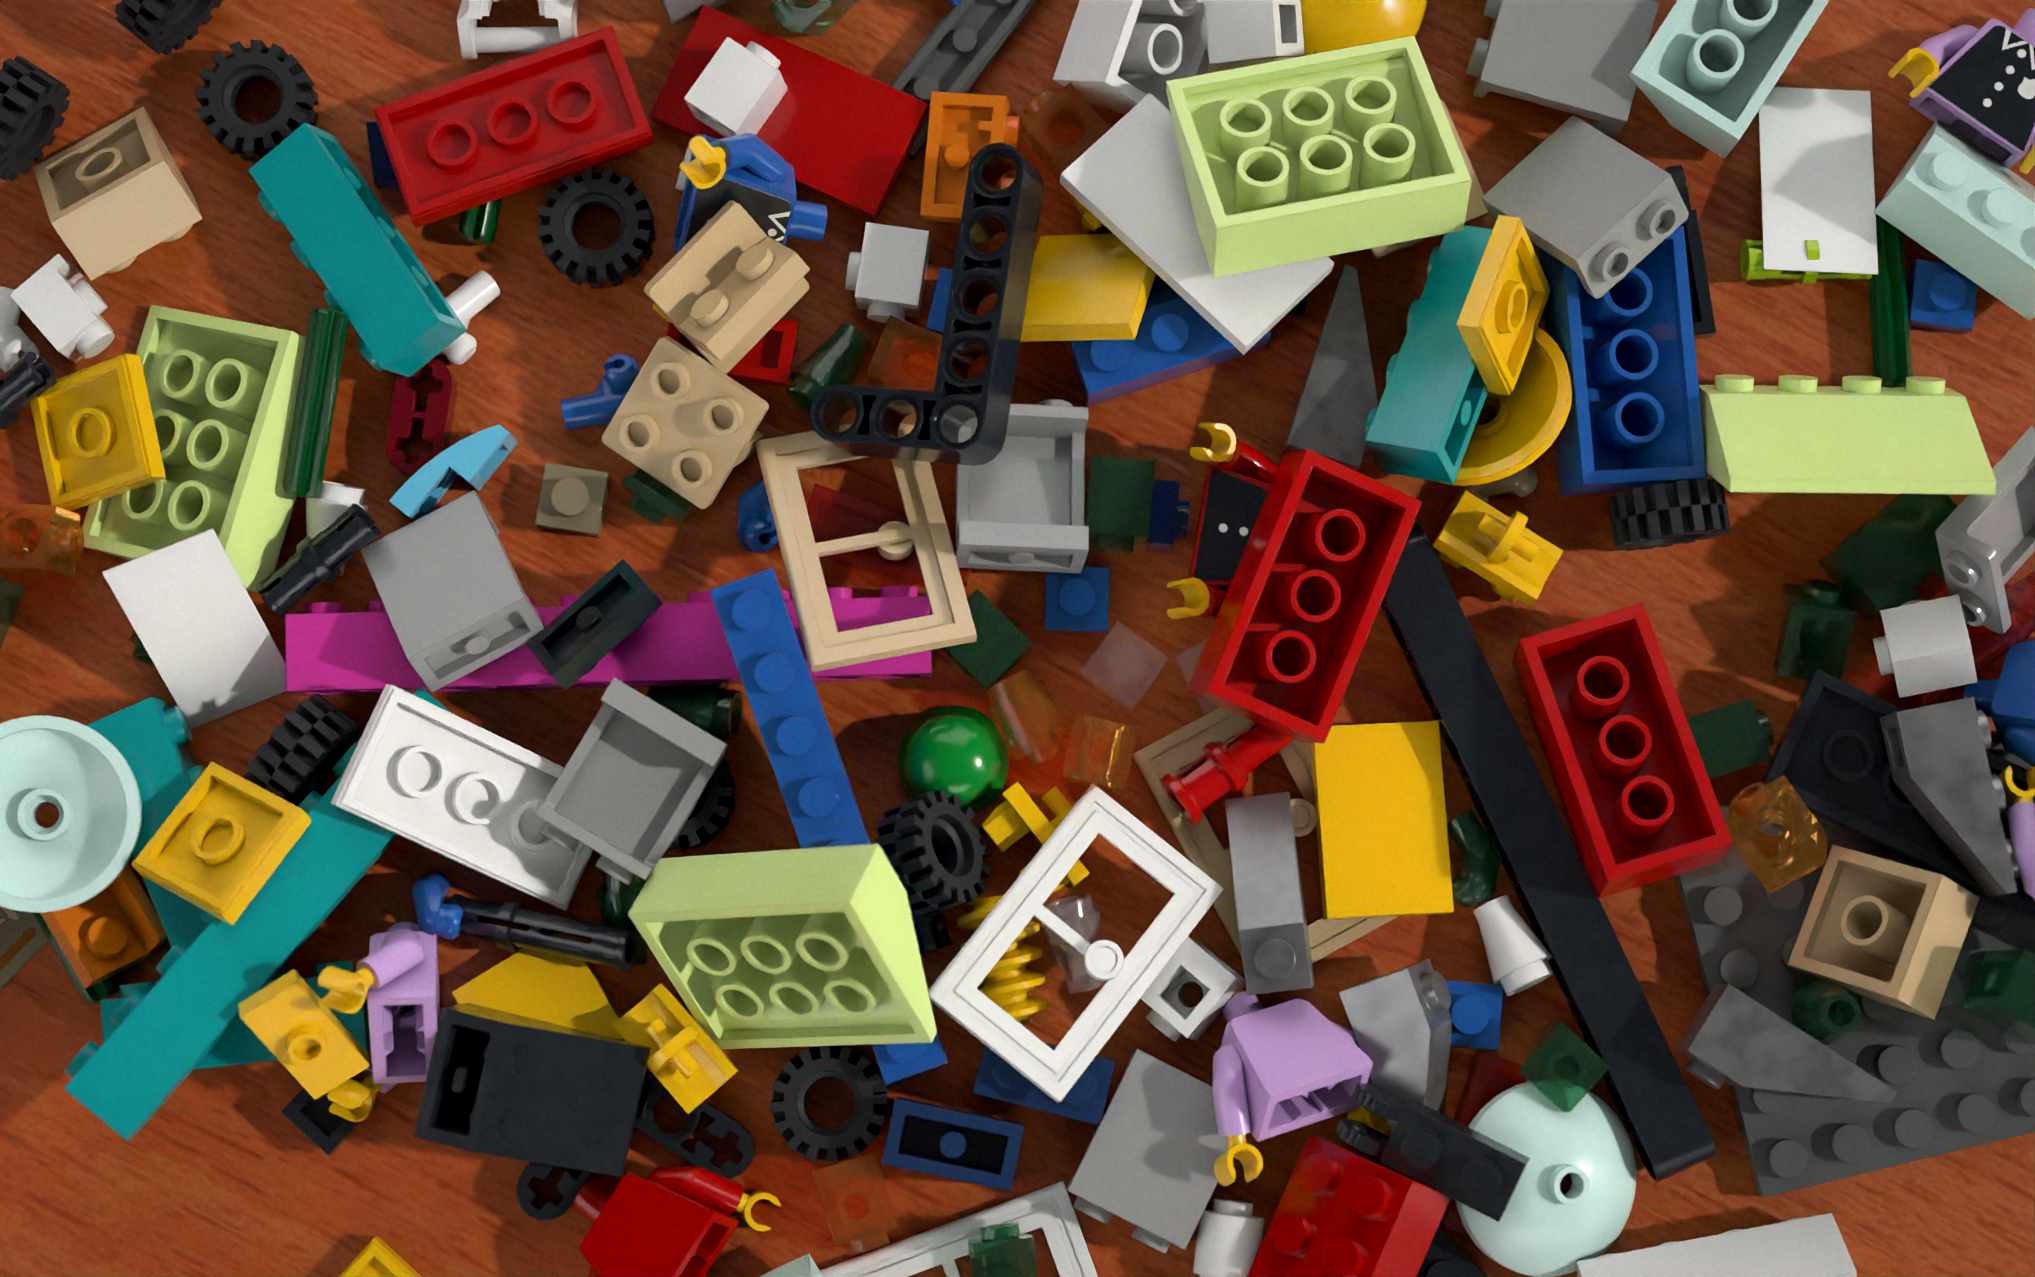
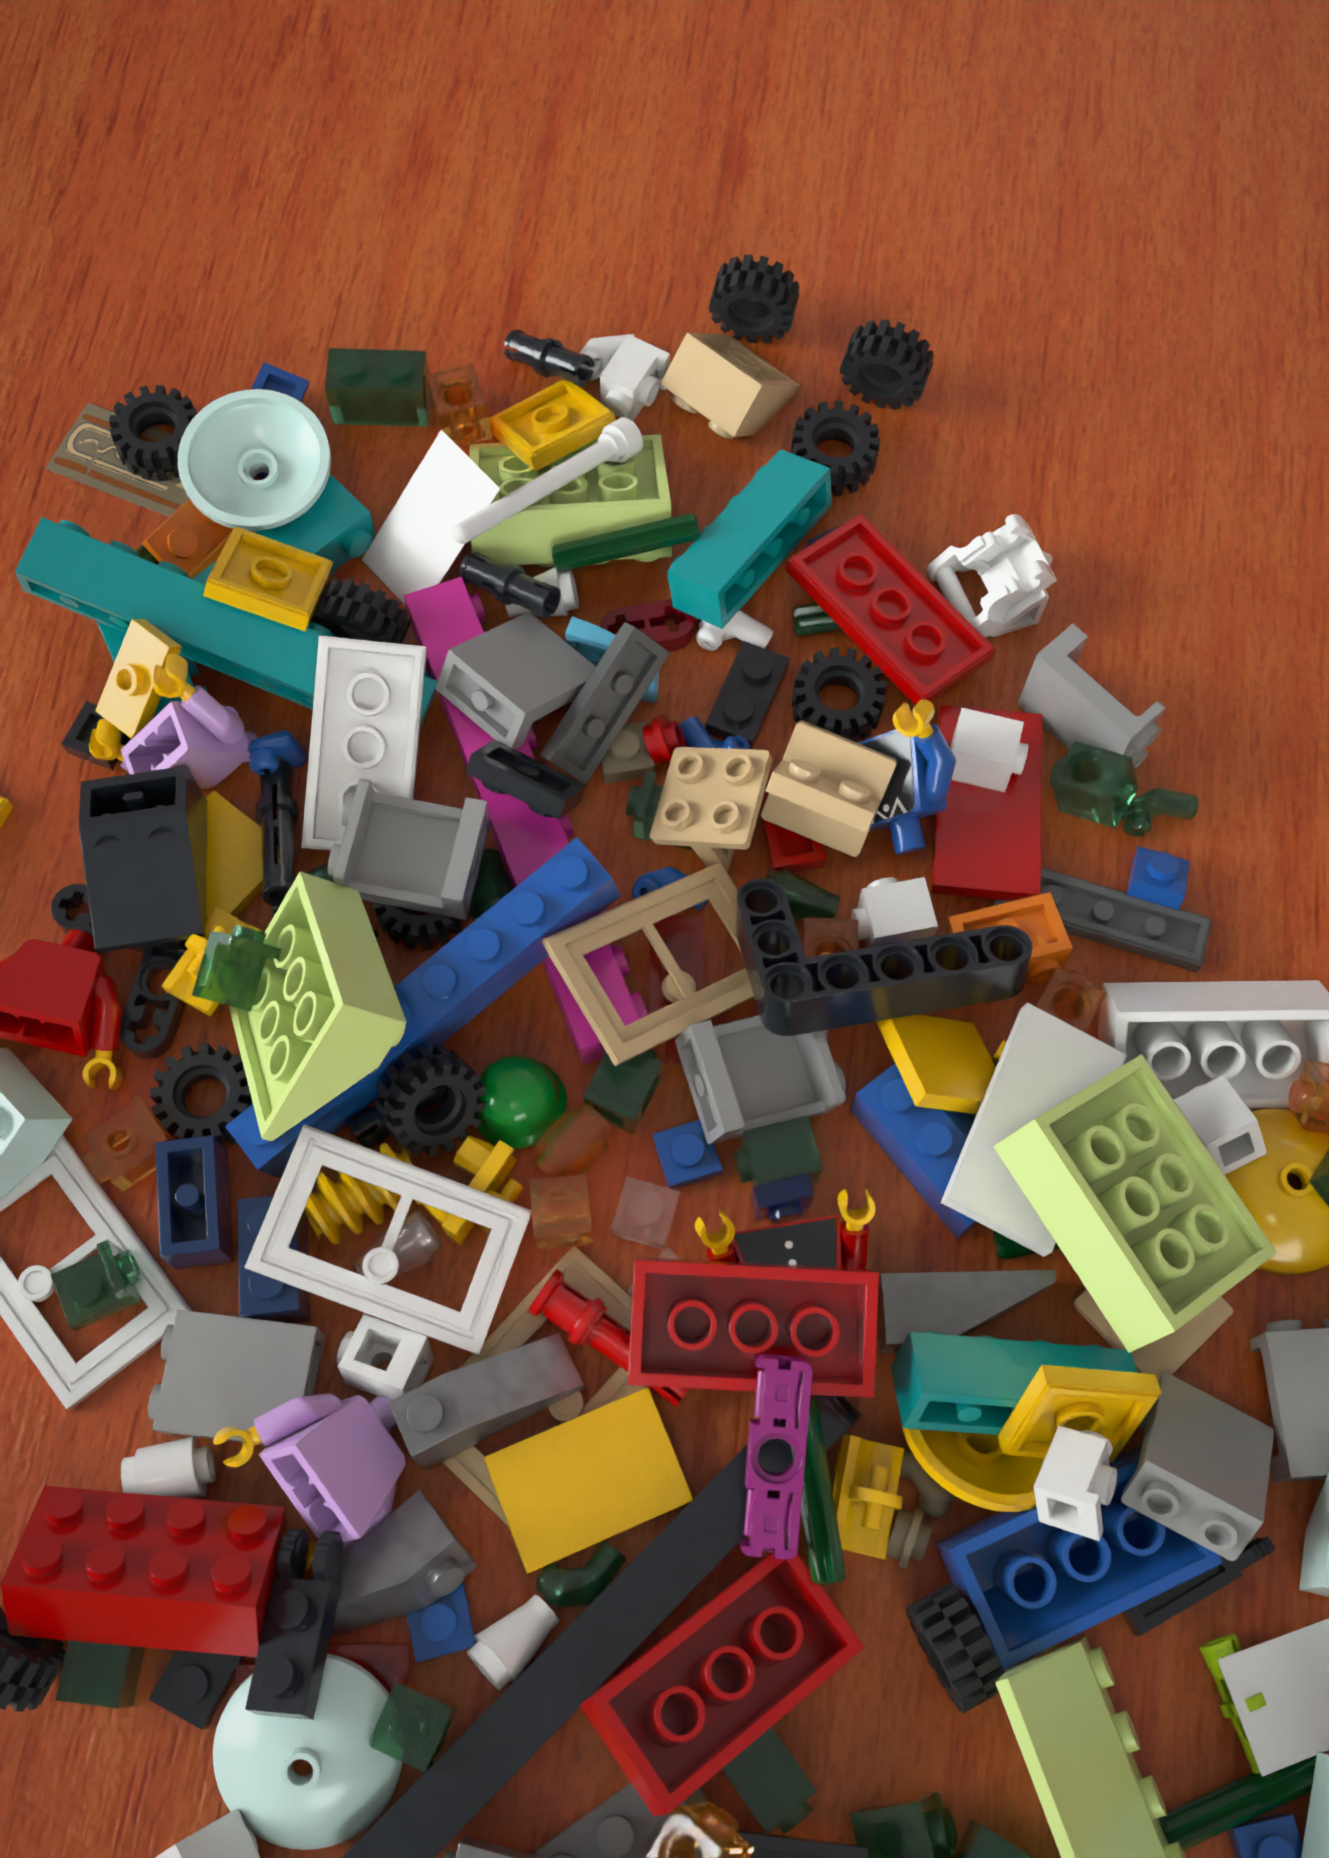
camera: 70 degrees right, 15 degrees down
(167, 363) = (616, 443): none -> white piece
(523, 501) = (605, 703): none -> dark grey plate
(550, 331) = (747, 693): none -> black plate
(579, 449) = (662, 738): none -> red plate
(708, 1023) = (233, 967): none -> clear green bracket
(1406, 601) = (776, 1497): none -> magenta piece
(1482, 595) = (818, 1508): none -> dark green axle
(1549, 518) = (909, 1537): none -> dark tan plate
(1568, 335) = (1075, 1482): none -> white brick

